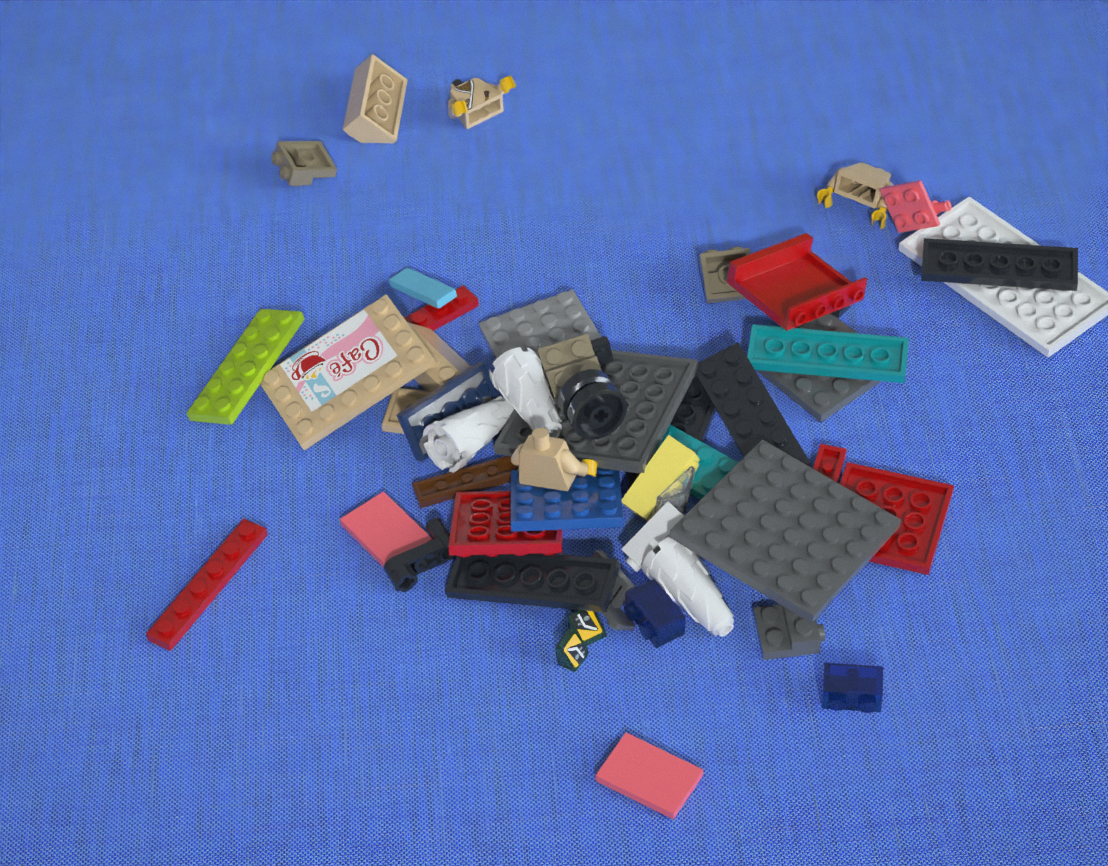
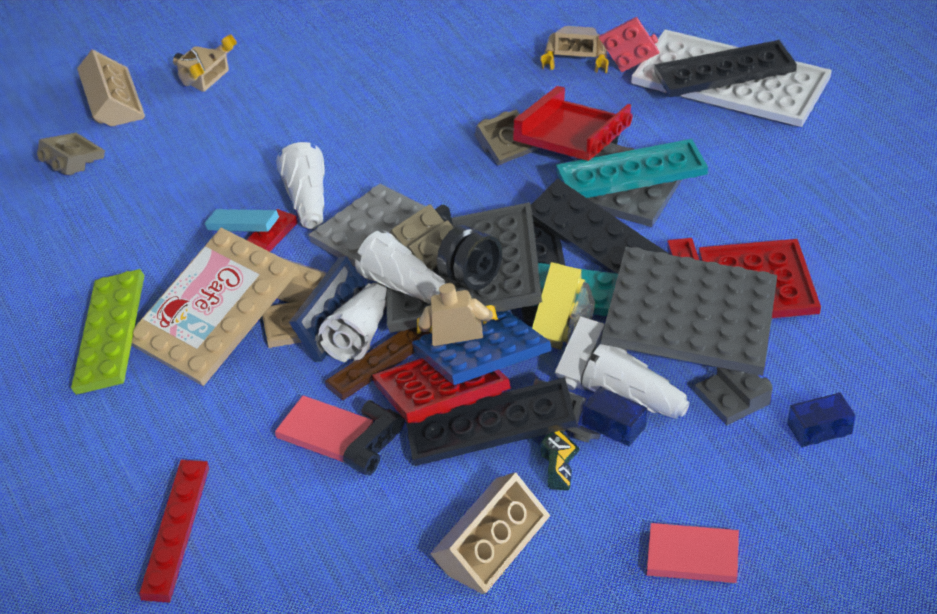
camera: 25 degrees left, 5 degrees down
(474, 689) = (491, 533): none -> tan slope
(501, 262) = (303, 178): none -> white cone

